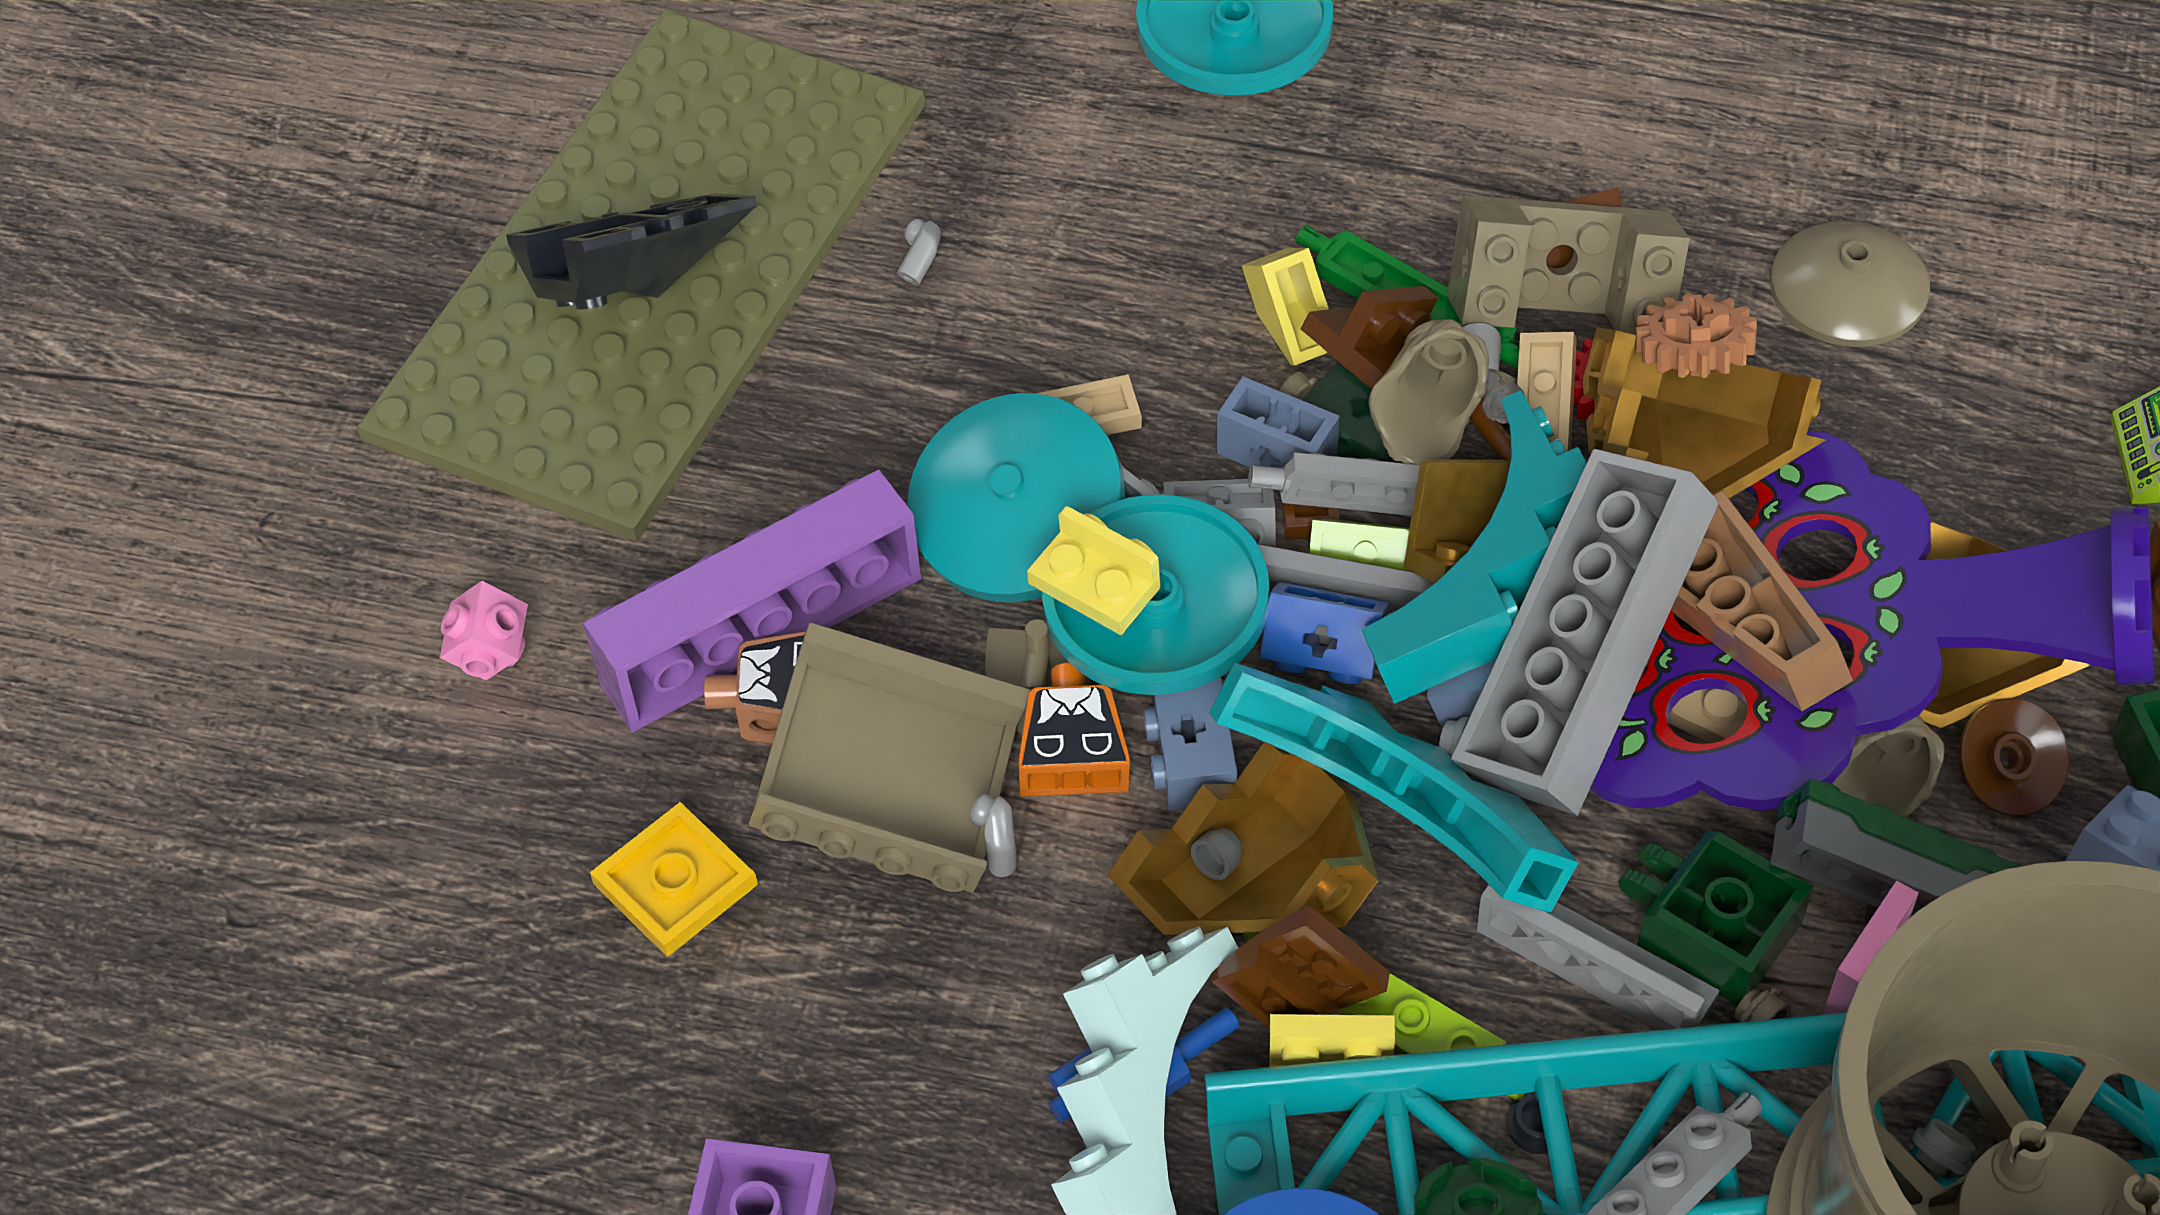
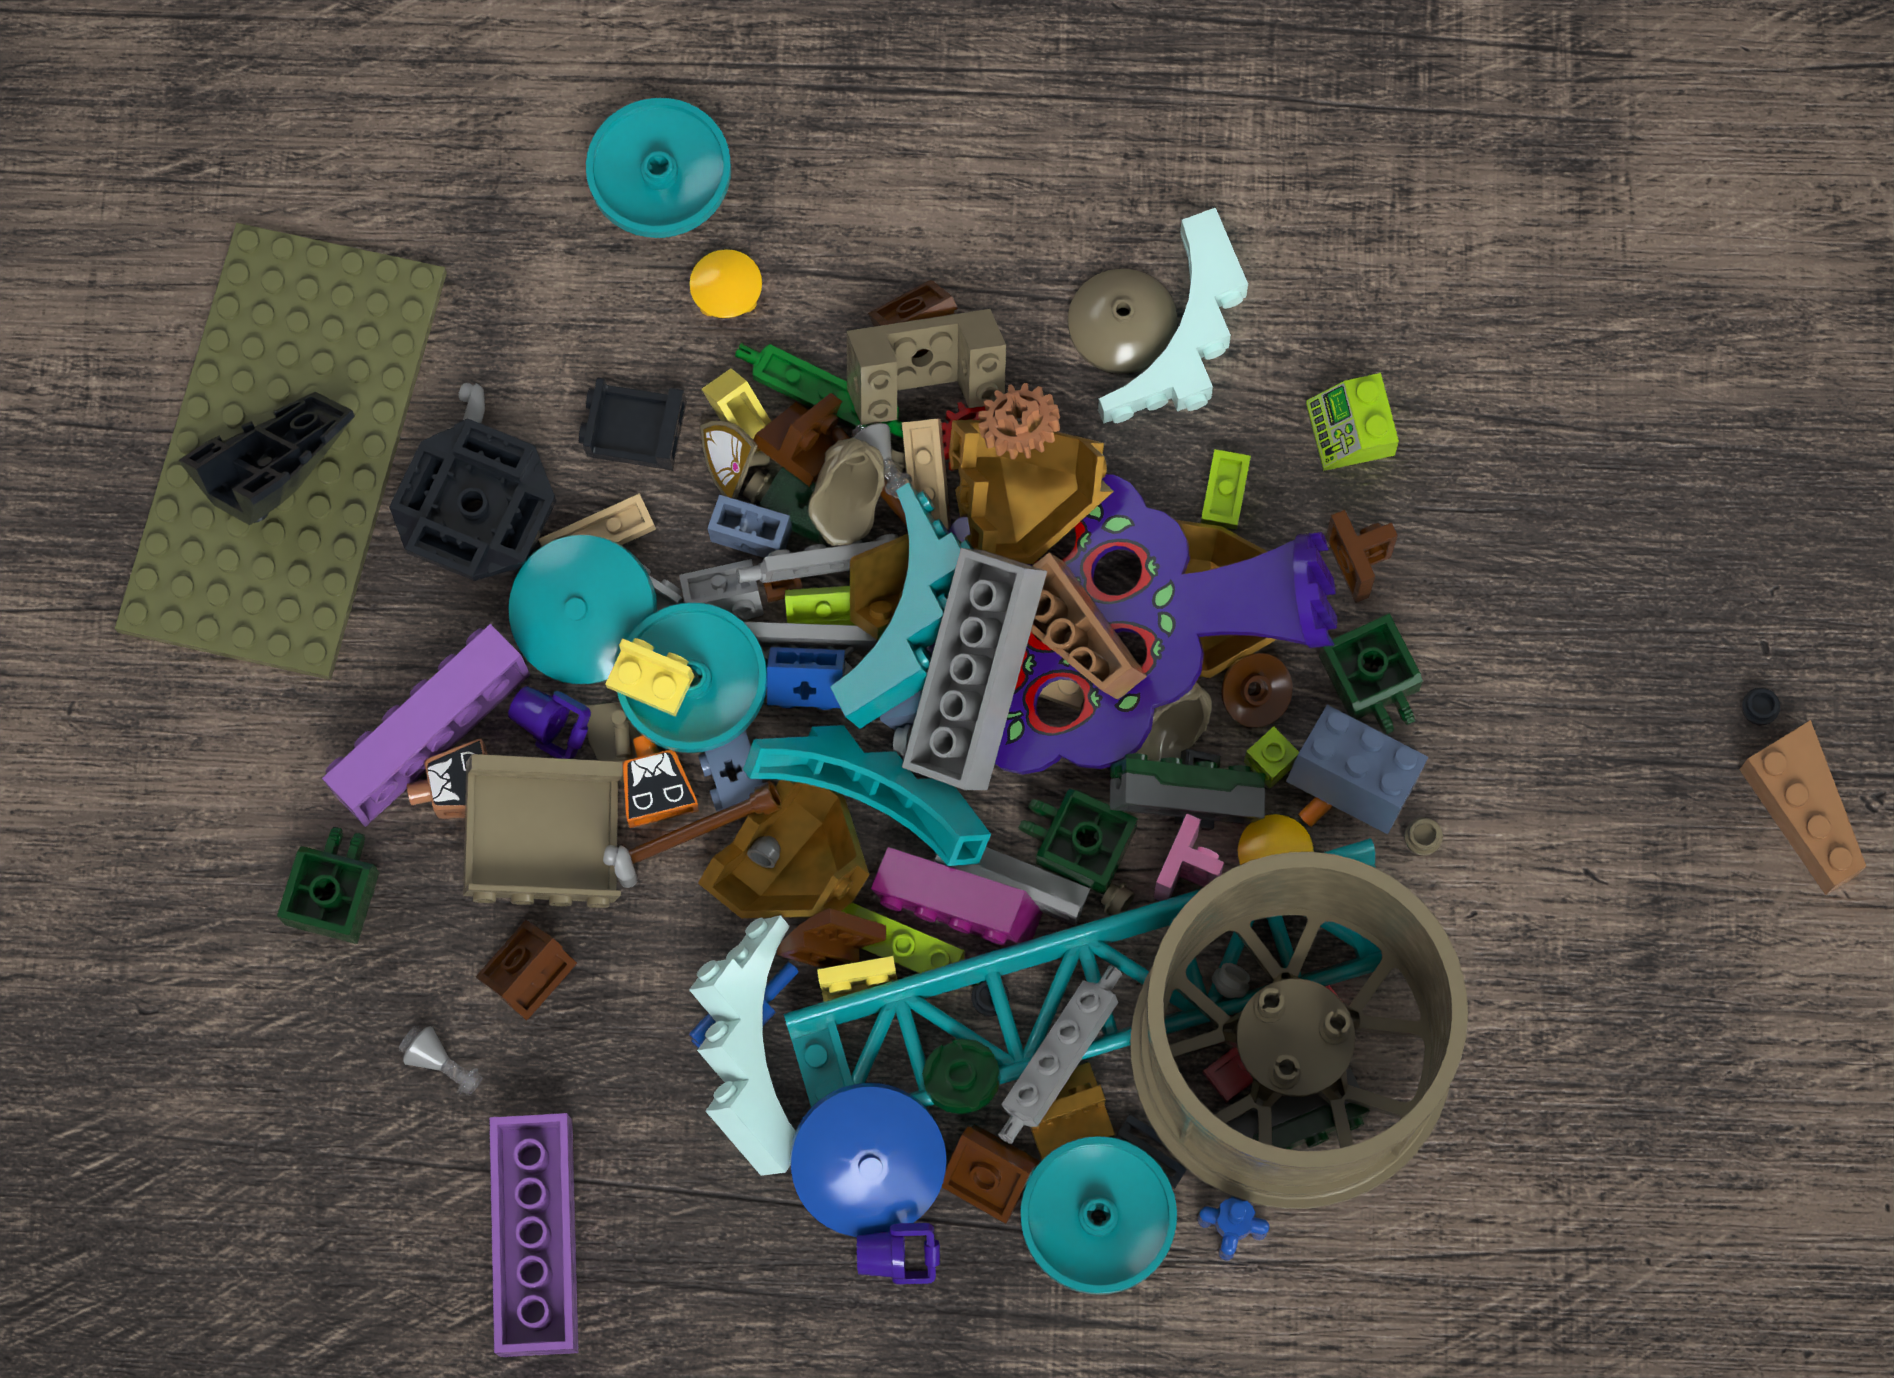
camera: 10 degrees left, 20 degrees up
(483, 631) = (250, 778): bright pink brick -> none
(553, 793) = (319, 872): none -> dark green hinge
(633, 1039) = (425, 1050): none -> piece
(674, 879) = (421, 933): yellow plate -> none
(822, 954) = (526, 969): none -> reddish brown bracket
(896, 338) = (464, 467): none -> black piece
(935, 622) = (546, 716): none -> dark purple piece
(1137, 300) = (633, 425): none -> black panel
(1229, 766) = (763, 800): none -> reddish brown piece
(1264, 342) = (729, 455): none -> shield
(1298, 164) = (726, 284): none -> yellow dish
(1507, 961) = (956, 898): none -> magenta wedge
(1969, 304) = (1179, 371): none -> light aqua arch
(1986, 492) = (1225, 489): none -> lime plate
(2032, 836) = (1271, 756): none -> lime brick

